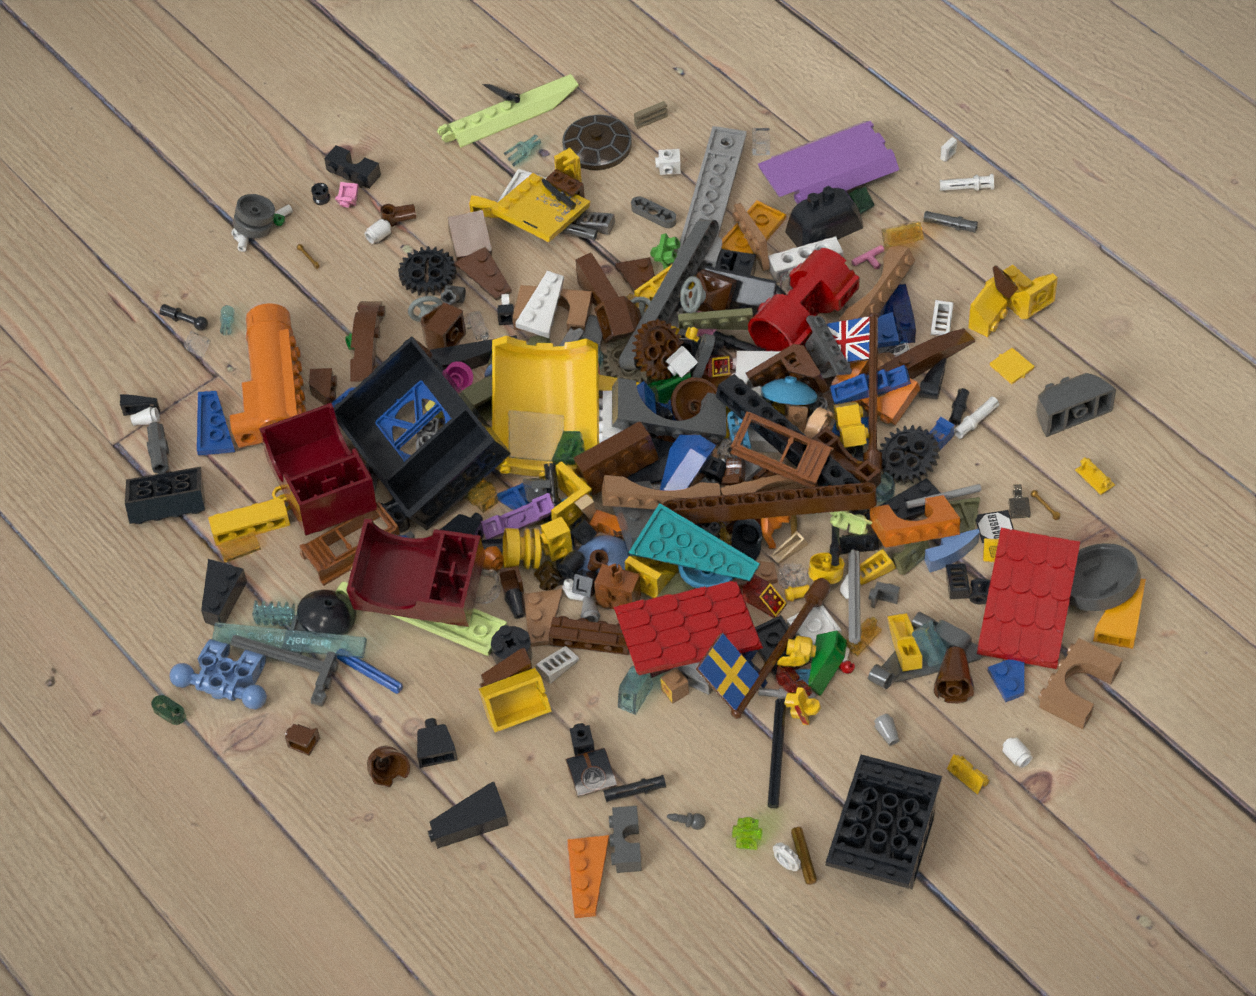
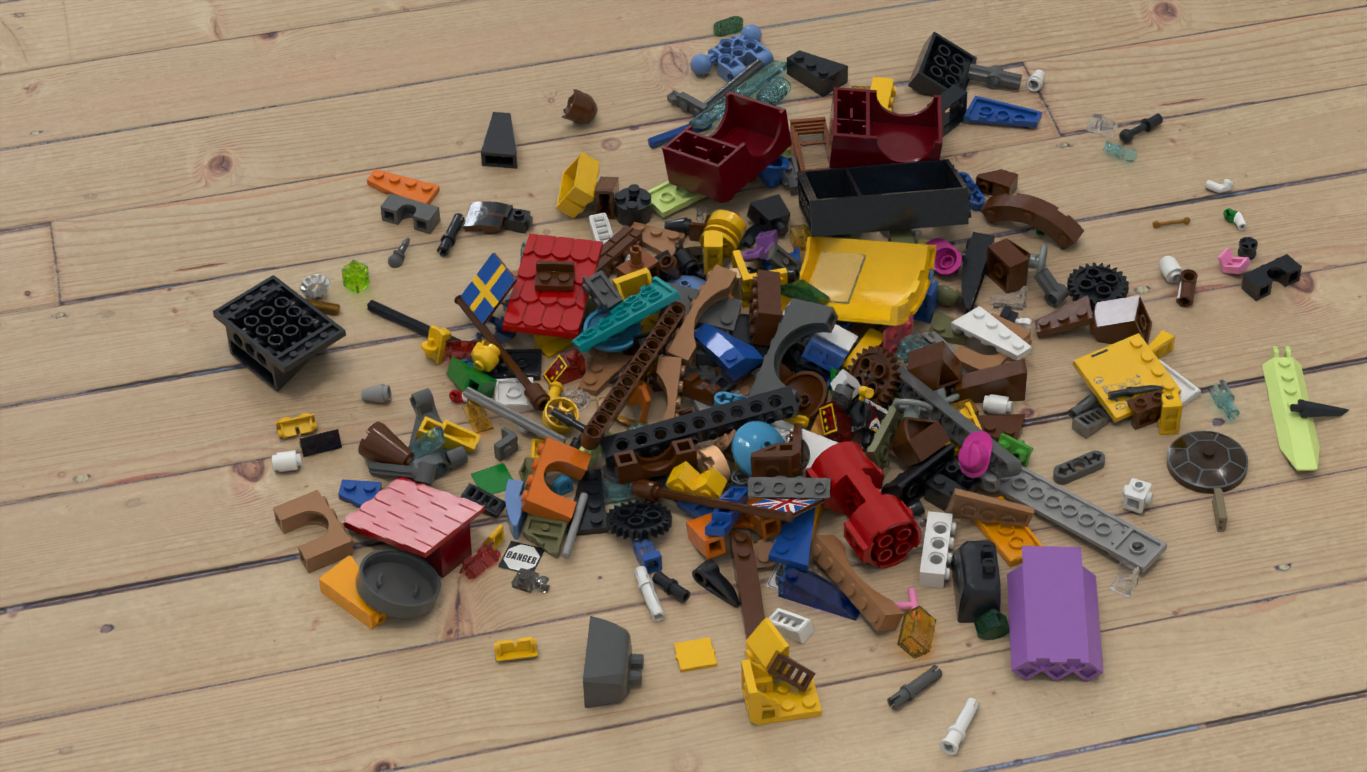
camera: 115 degrees right, 10 degrees down
(133, 404) = (1053, 77): black slope -> none
(253, 216) = (1235, 189): dark grey wheel -> none
(253, 466) = (956, 100): none -> black window
(274, 372) = (995, 143): orange piece -> none
(302, 738) = (644, 77): reddish brown window -> none
(434, 744) = (579, 140): black torso -> none
(618, 281) = (997, 404): none -> white brick
(680, 578) = (602, 291): none -> dark grey bracket
(686, 620) = (555, 276): none -> reddish brown bracket
(709, 247) = (975, 454): none -> dark pink piece
(810, 463) = (690, 403): dark orange piece -> none
(923, 591) = (493, 478): none -> green sticker
(948, 149) = (1019, 730): white tile -> none
(971, 623) = (421, 472): none -> dark grey axle
(980, 746) = (320, 442): none -> black hinge
(1055, 515) = (498, 604): pearl gold hinge -> none

